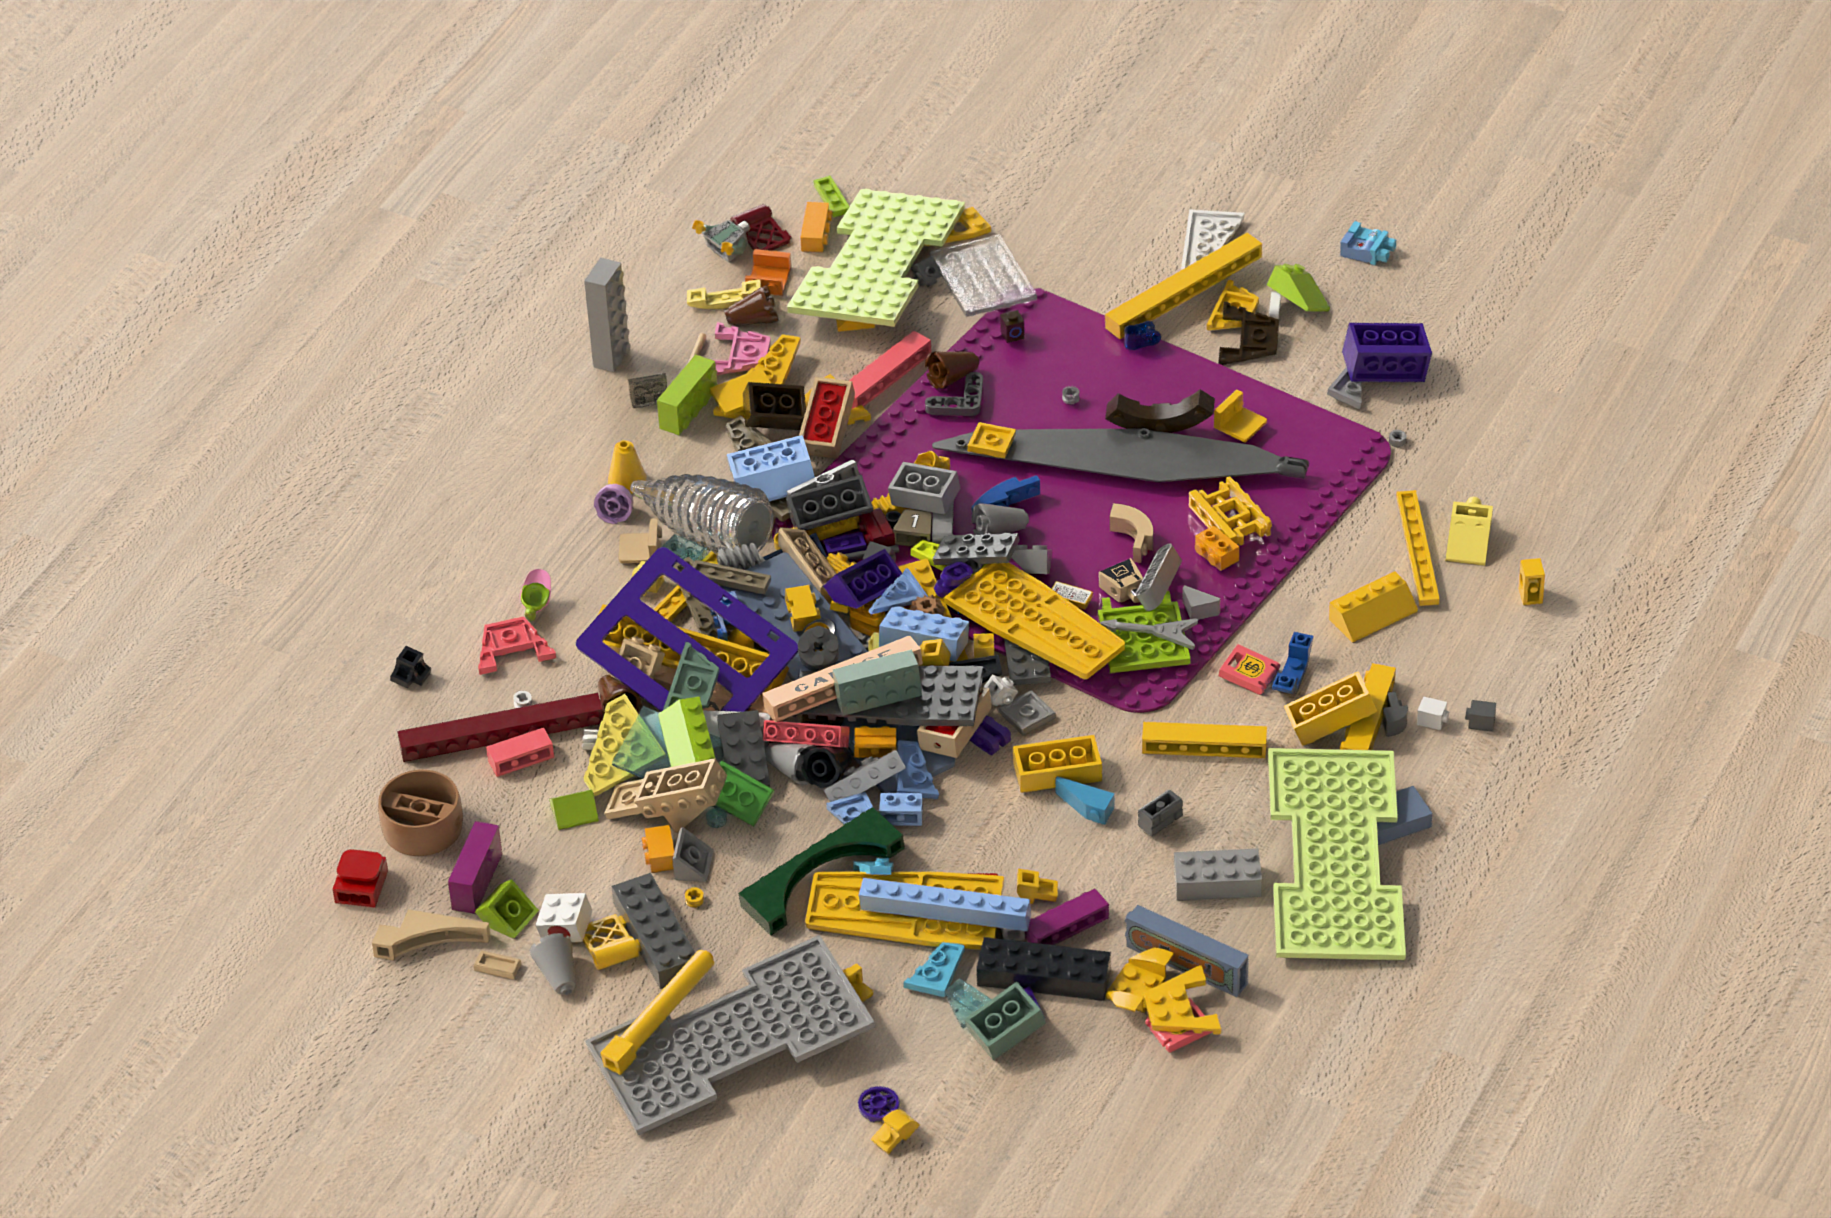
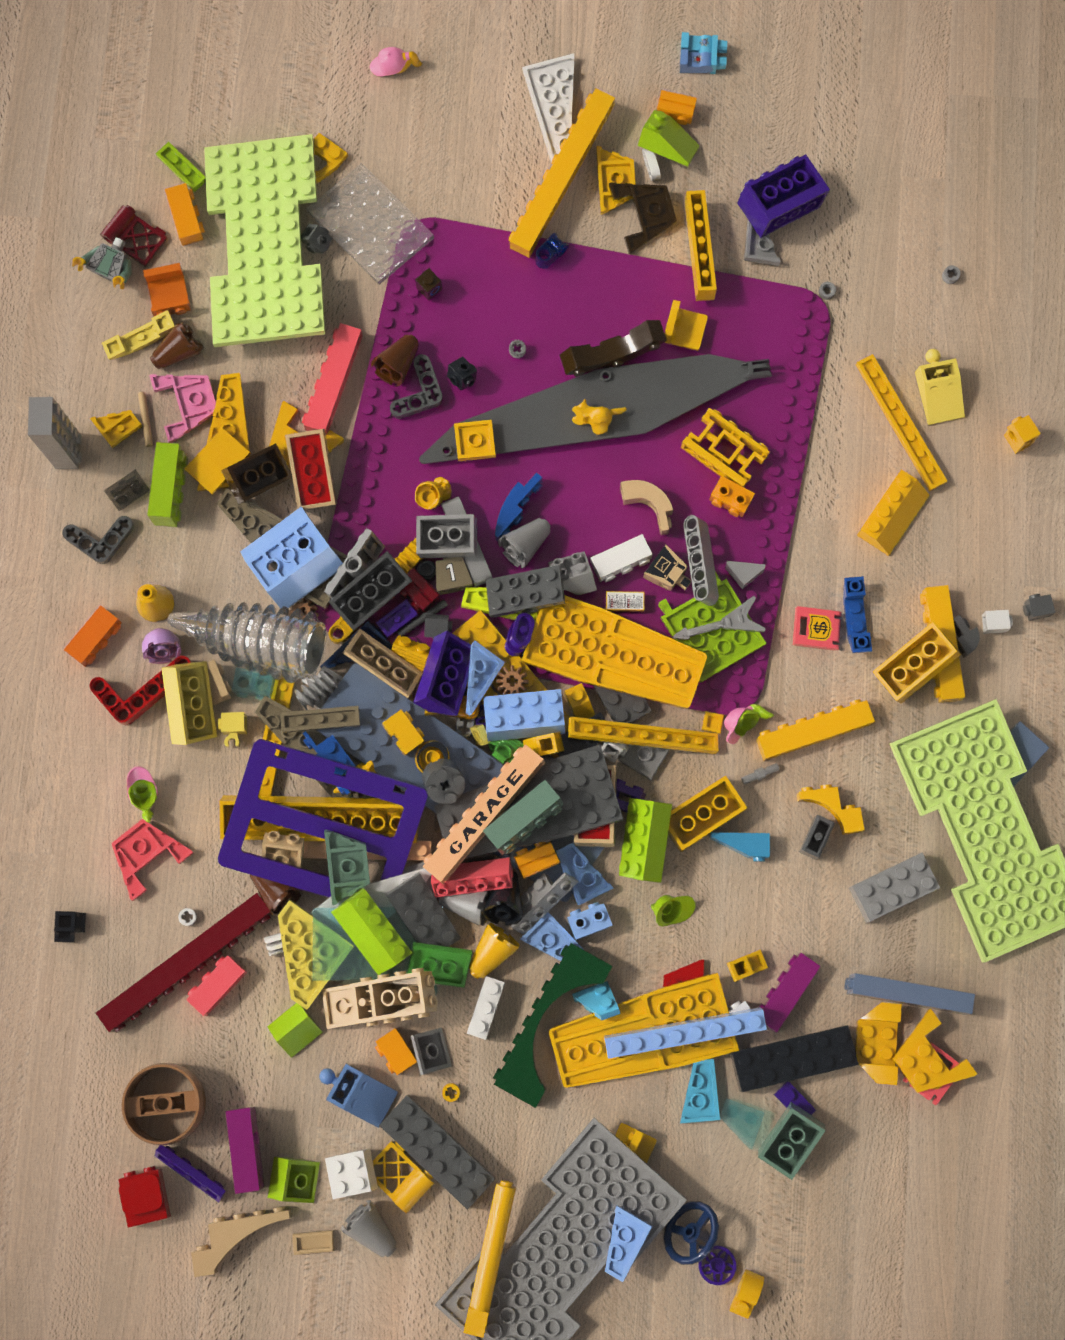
camera: 25 degrees left, 35 degrees up
(413, 875) = (184, 1168): none -> dark purple plate
(556, 481) = (93, 636): none -> orange brick
(579, 535) = (129, 704): none -> red beam
(602, 430) = (96, 546): none -> dark grey beam
(602, 862) = (362, 1095): none -> medium blue slope
(616, 544) = (189, 702): none -> light yellow slope
(667, 350) = (117, 426): none -> yellow wing
(764, 842) = (485, 1008): none -> white brick
(794, 801) = (492, 951): none -> yellow cone
(799, 1032) = (626, 1242): none -> light blue wing
(867, 1061) = (693, 1233): none -> dark blue piece
(988, 756) = (645, 840): none -> lime brick
(989, 825) = (672, 909): none -> lime piece
(1007, 393) = (462, 373): none -> black brick
(1031, 684) = (642, 735): none -> yellow plate
(1072, 174) = (393, 61): none -> bright pink hair
(1082, 560) = (621, 558): none -> white brick
(1107, 709) = (712, 722): none -> yellow tile
(1117, 453) = (597, 417): none -> yellow animal
(1132, 758) = (760, 773): none -> light grey bar
(1135, 711) = (742, 720): none -> hair
(1201, 811) = (849, 818): none -> yellow arch
(1287, 367) = (700, 245): none -> yellow brick
(1324, 273) = (677, 106): none -> light orange brick
(1528, 459) = (947, 279): none -> light grey bush

